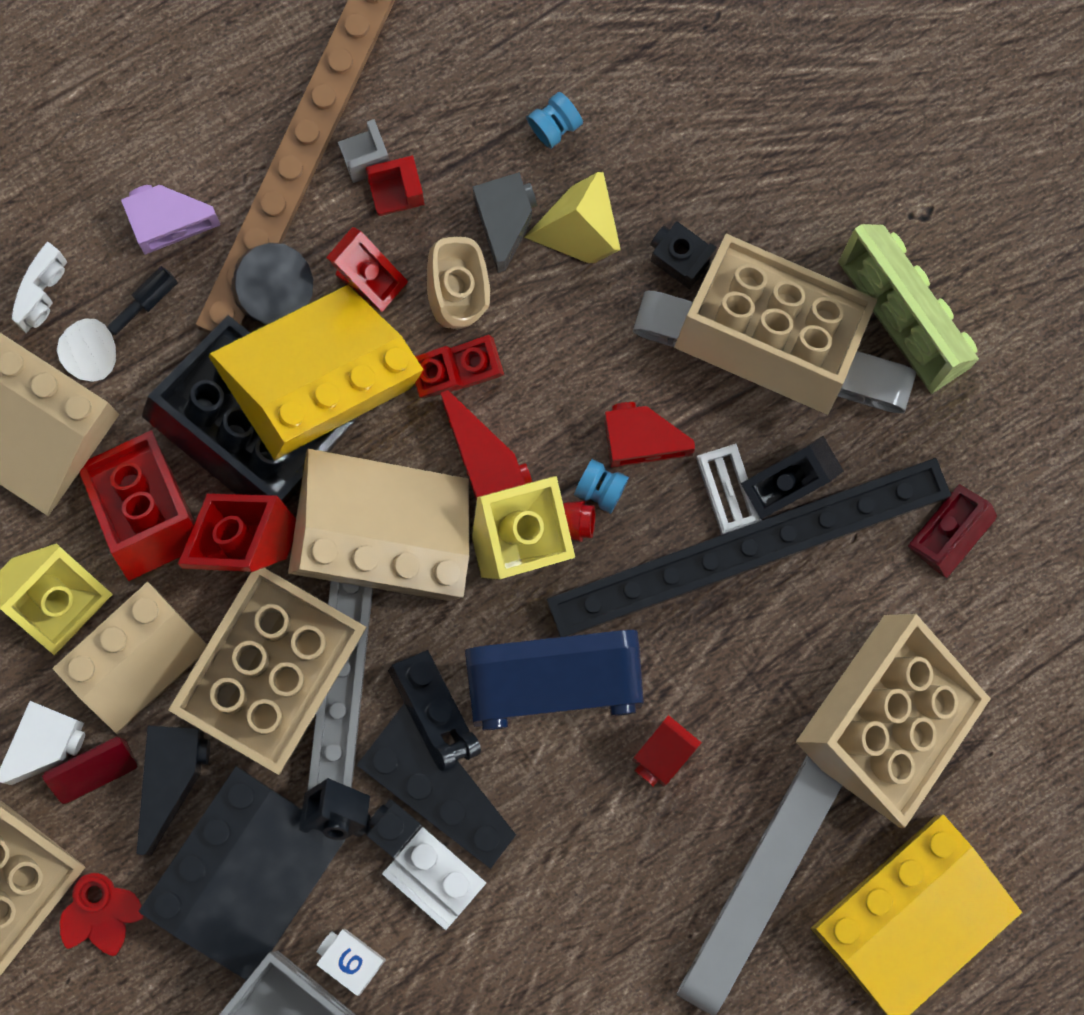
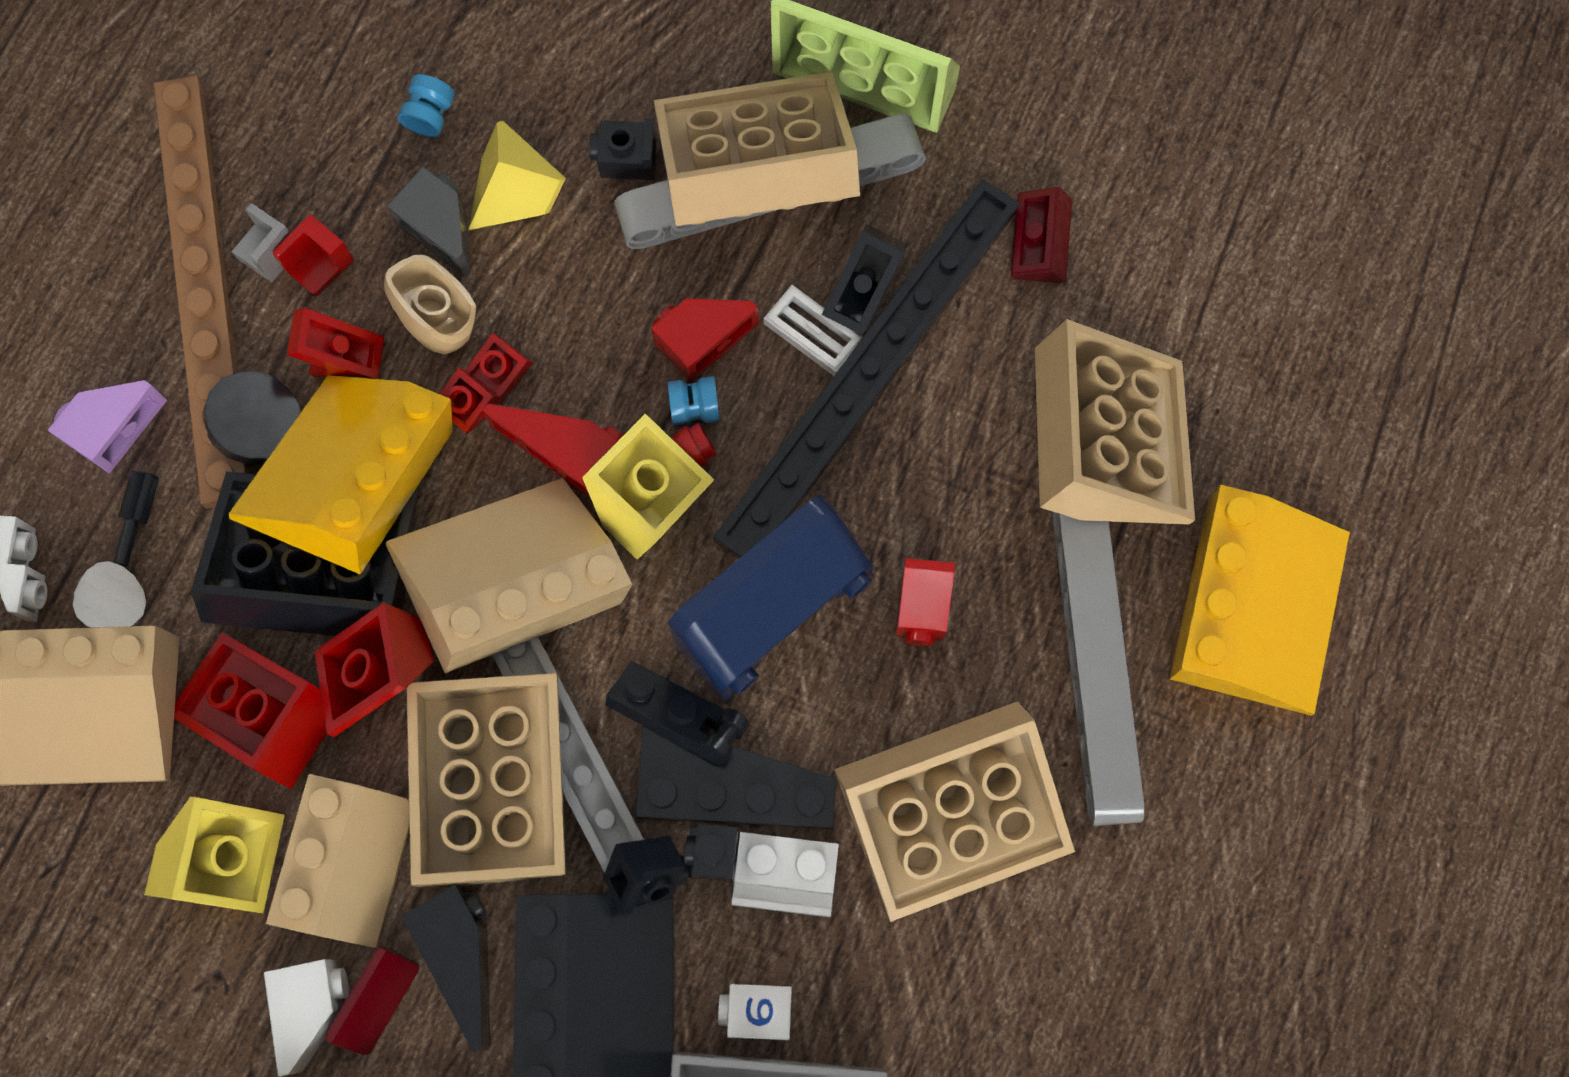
camera: 30 degrees left, 5 degrees down
(586, 916) = (955, 810): none -> tan slope

